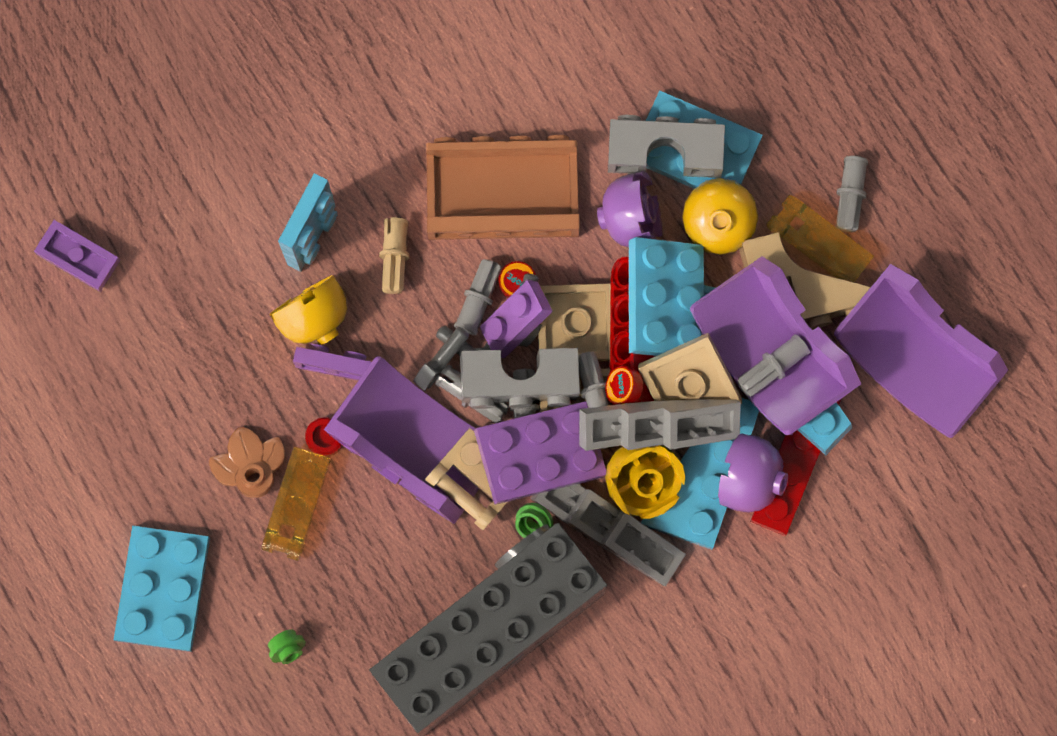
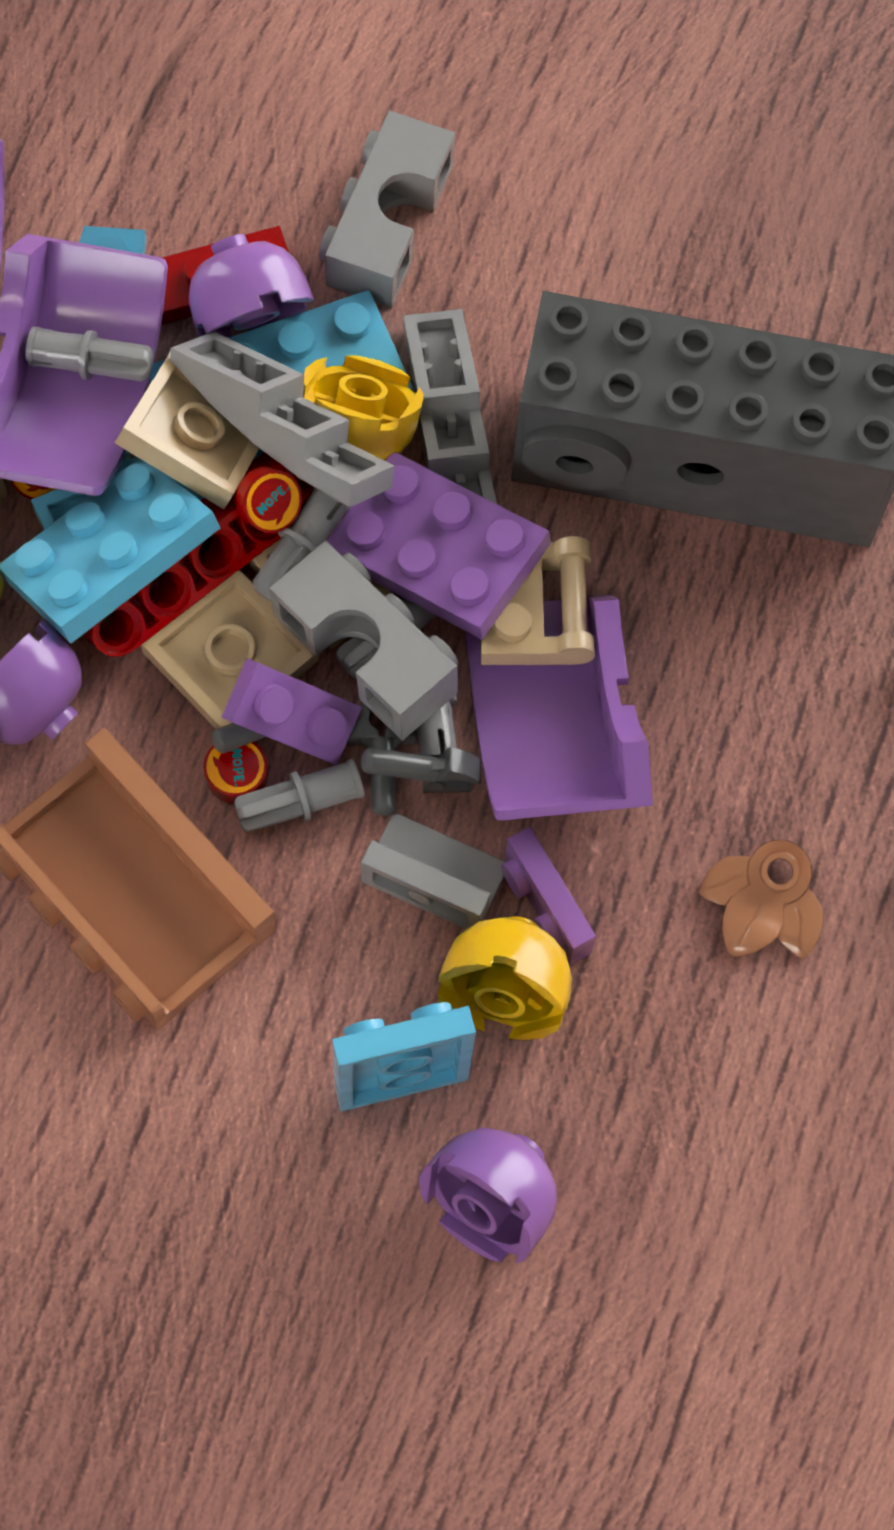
camera: 135 degrees left, 10 degrees down
(77, 255) = (710, 1363): medium lavender plate -> none
(225, 227) = (492, 1192): none -> medium lavender cylinder
(296, 502) = (758, 798): clear yellow plate -> none
(319, 440) = (646, 838): red tile -> none
(392, 326) = (432, 872): none -> light grey panel
(394, 255) = (338, 943): tan axle -> none
(524, 521) = (526, 498): bright green plate -> none
(737, 563) = (402, 167): none -> light grey arch

